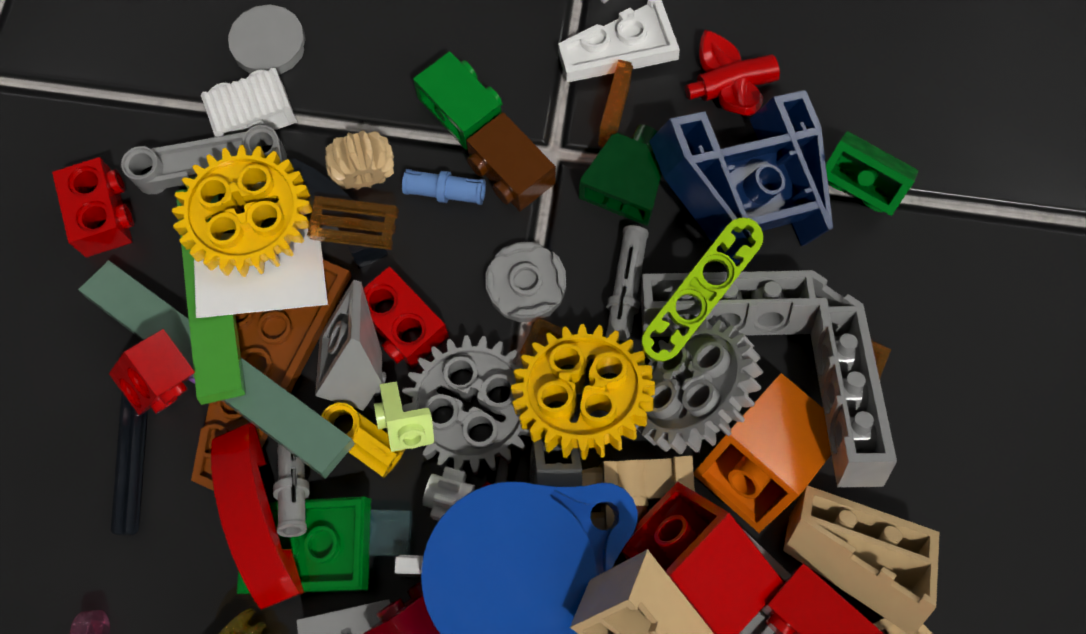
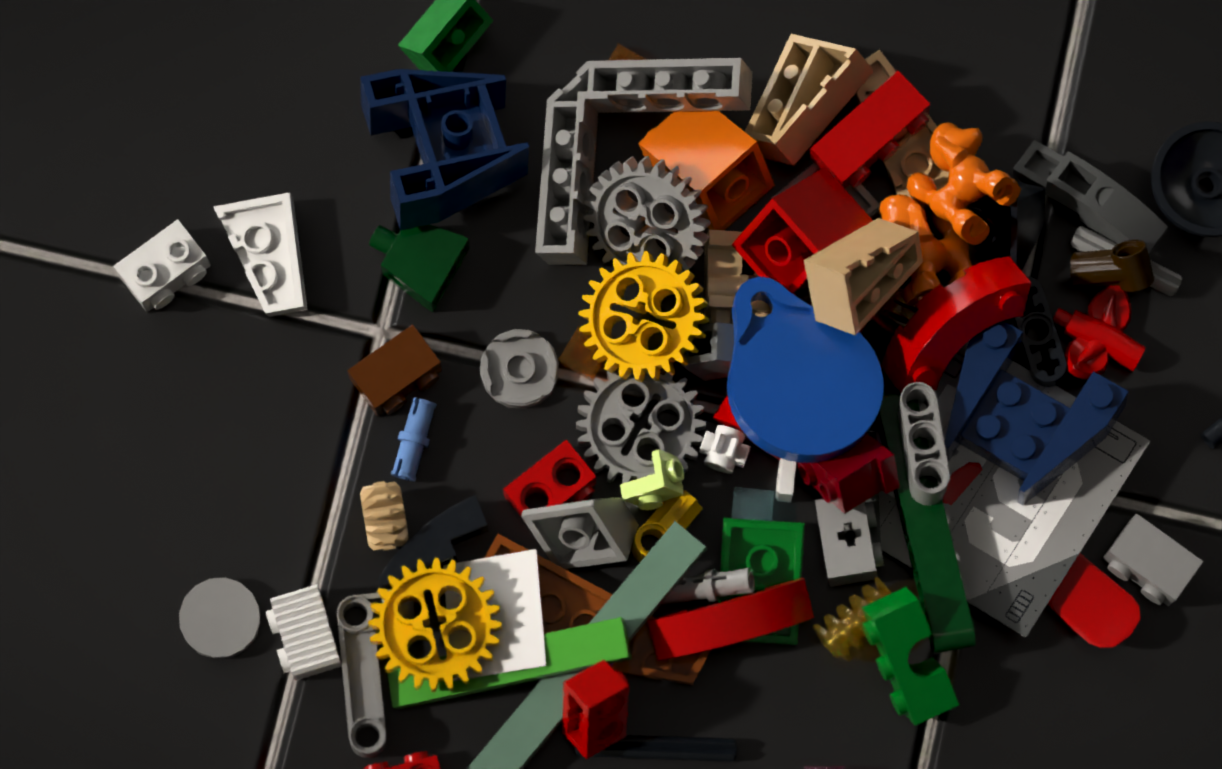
camera: 90 degrees left, 5 degrees up
(387, 227) = (449, 552): clear orange tile -> none
(457, 97) = (323, 415): green brick -> none
(615, 101) = (341, 263): clear orange tile -> none
(624, 302) = (489, 262): light grey pin -> none
(704, 292) = (569, 193): lime beam -> none
(730, 76) = (319, 146): red plant -> none

